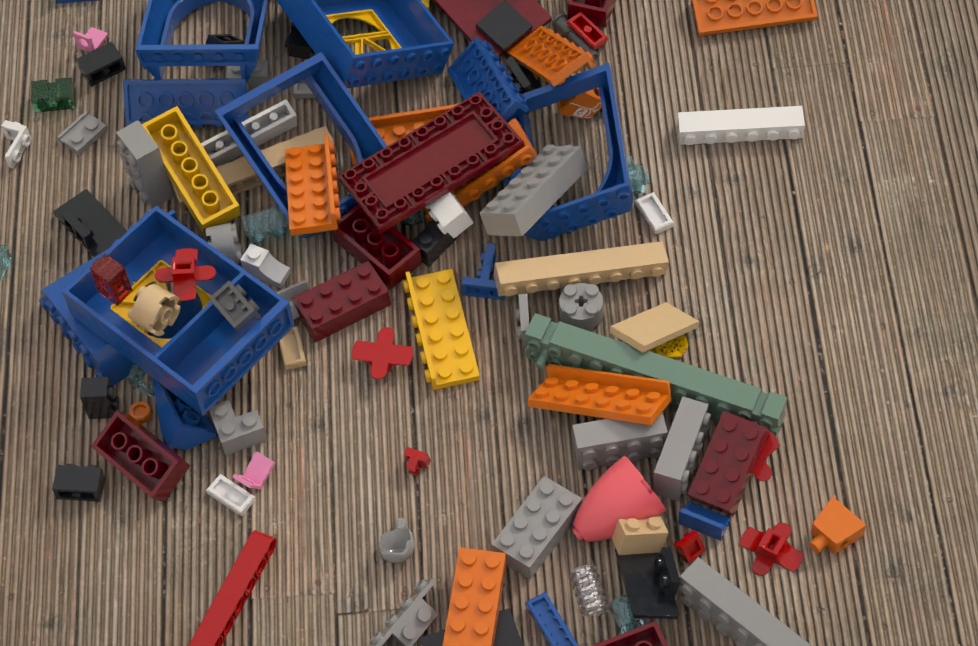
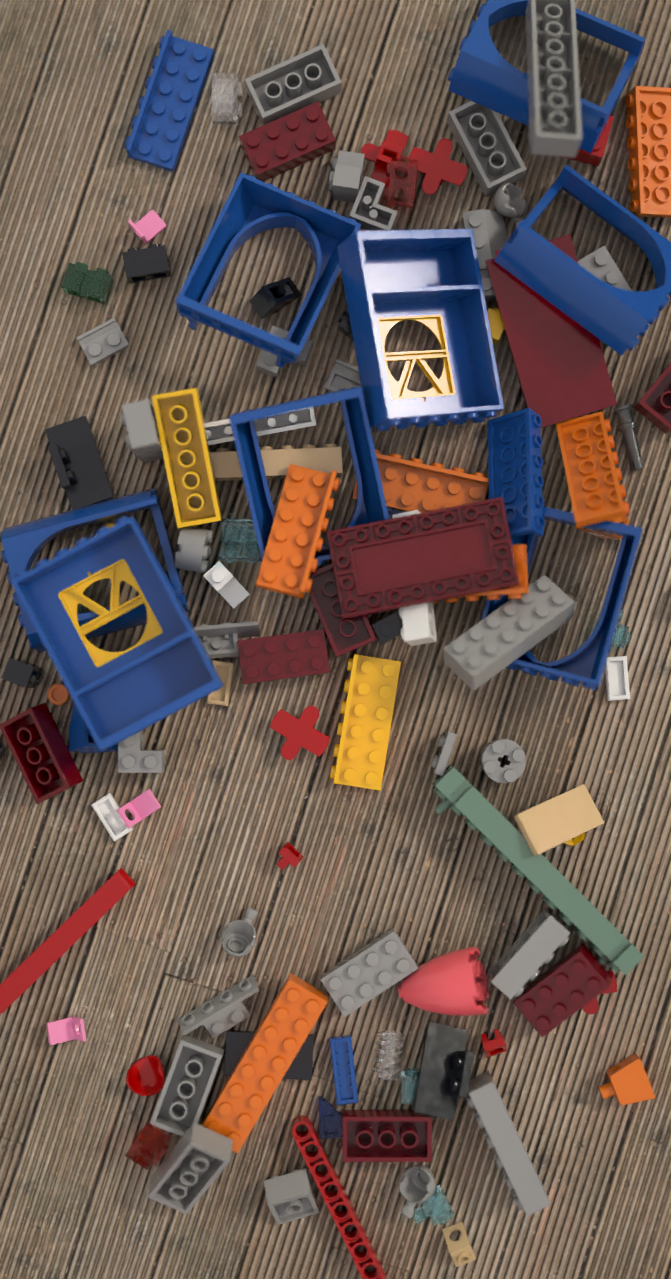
camera: 15 degrees right, 30 degrees up
(21, 140) = (38, 331): white bracket -> none
(111, 279) = (56, 598): clear red brick -> none
(154, 309) = (88, 651): tan brick -> none
(185, 273) = (134, 609): red piece -> none
(194, 97) = (213, 360): blue bracket -> none
(234, 305) = (168, 673): dark grey bracket -> none
(483, 285) = (427, 686): blue bracket -> none
(504, 26) = (564, 398): black tile -> none
(522, 77) = (557, 477): black bracket -> none
(580, 267) = (519, 722): tan brick -> none
(587, 31) = (644, 437): red slope -> none
(602, 394) = (478, 876): orange bracket -> none
(609, 440) = (477, 921): light grey brick -> none
(639, 536) = (453, 1025): tan brick -> none
(703, 520) = (517, 1023): blue panel -> none
(771, 548) = (564, 1071): red piece -> none

